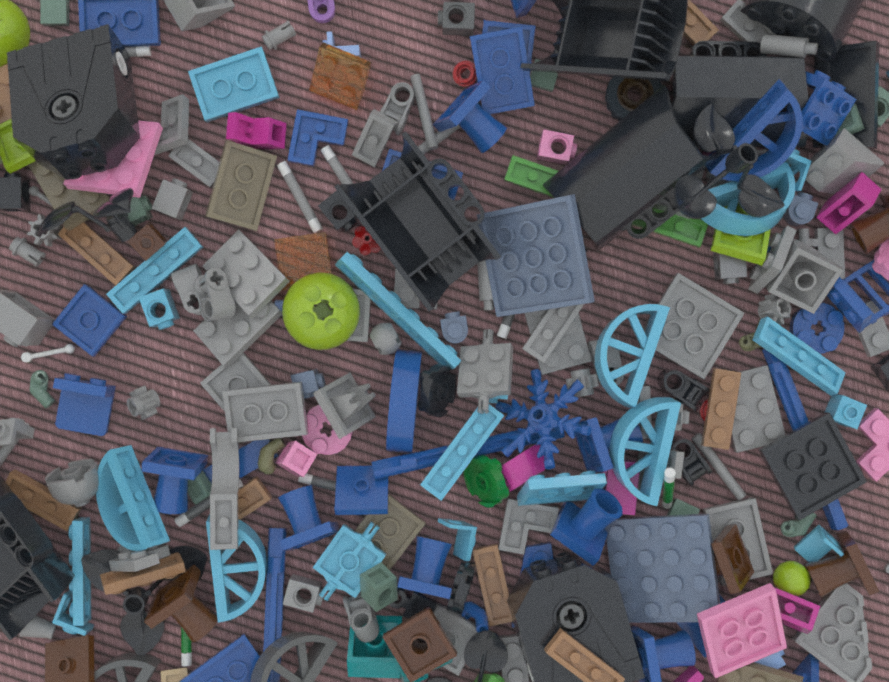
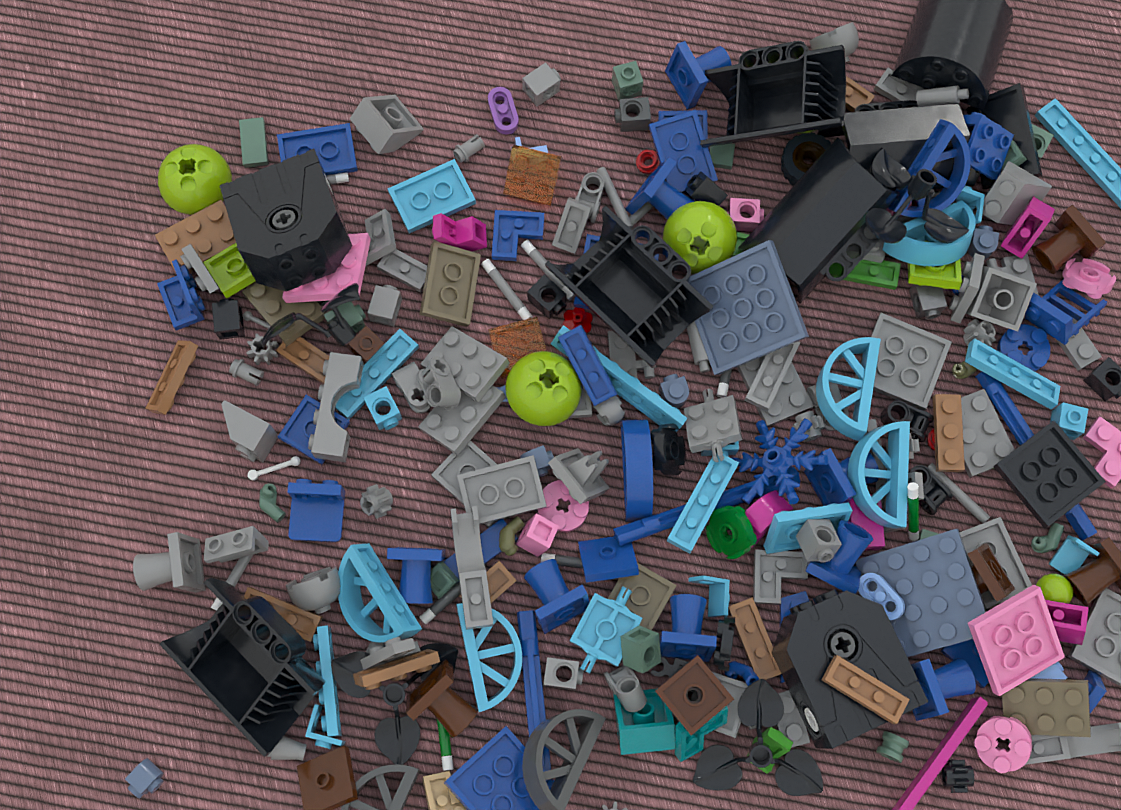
camera: 15 degrees left, 15 degrees down
(100, 334) = (342, 375): none -> light grey arch
(366, 297) = (587, 365): none -> blue tile
(508, 160) = (695, 225): none -> lime piece
(519, 119) = (704, 189): none -> black brick
(573, 500) = (818, 540): none -> light grey brick
(619, 565) = (882, 595): none -> light blue plate

